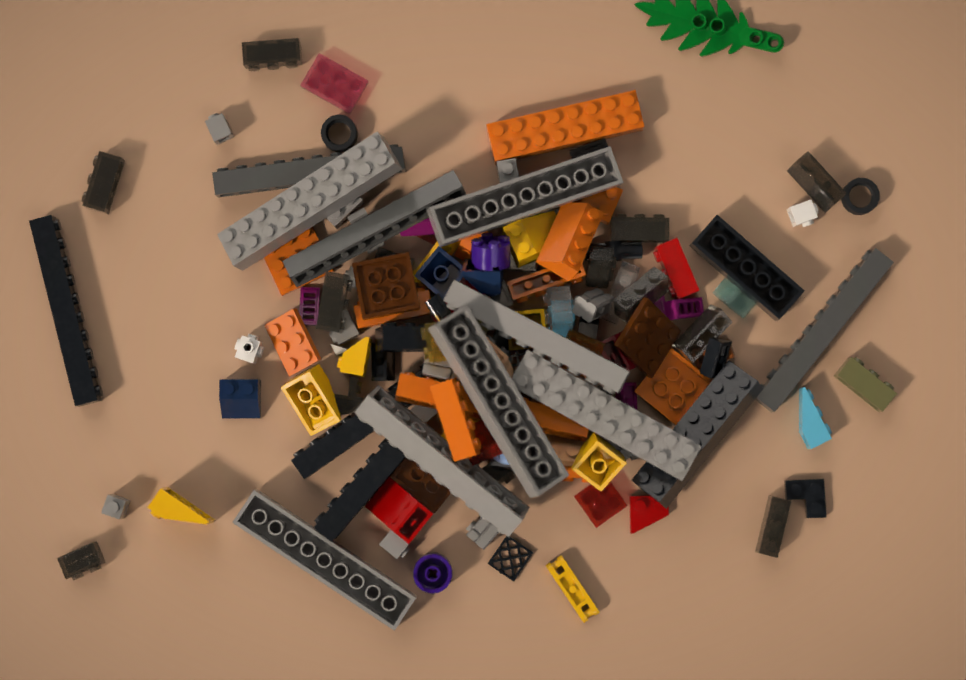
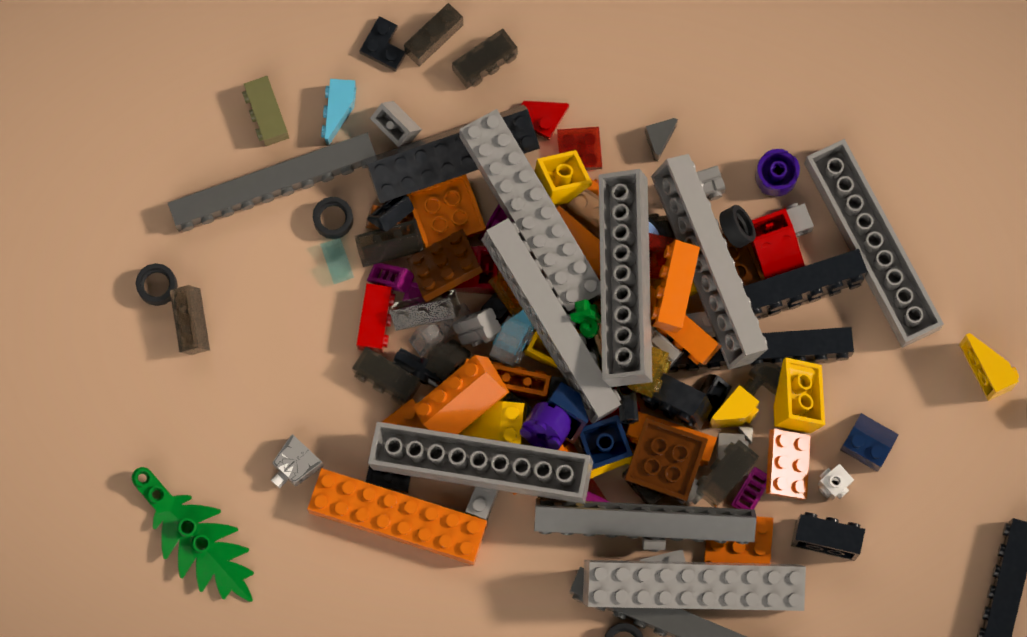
camera: 150 degrees left, 10 degrees down
(230, 302) = (828, 536): none -> black brick
(436, 502) = (737, 226): none -> black tyre
(501, 570) = (689, 135): black window -> none
(510, 354) = (587, 317): none -> green hips
(543, 549) = (659, 135): none -> dark grey slope
(572, 588) = (653, 86): yellow plate -> none
(667, 122) = (294, 463): none -> light grey torso
(719, 531) = (485, 59): none -> clear smoke brick
(744, 329) = (328, 202): none -> black tyre
(746, 268) = (308, 279): black brick -> none
(757, 433) = (395, 123): none -> light grey brick
(803, 213) = (221, 299): white brick -> none

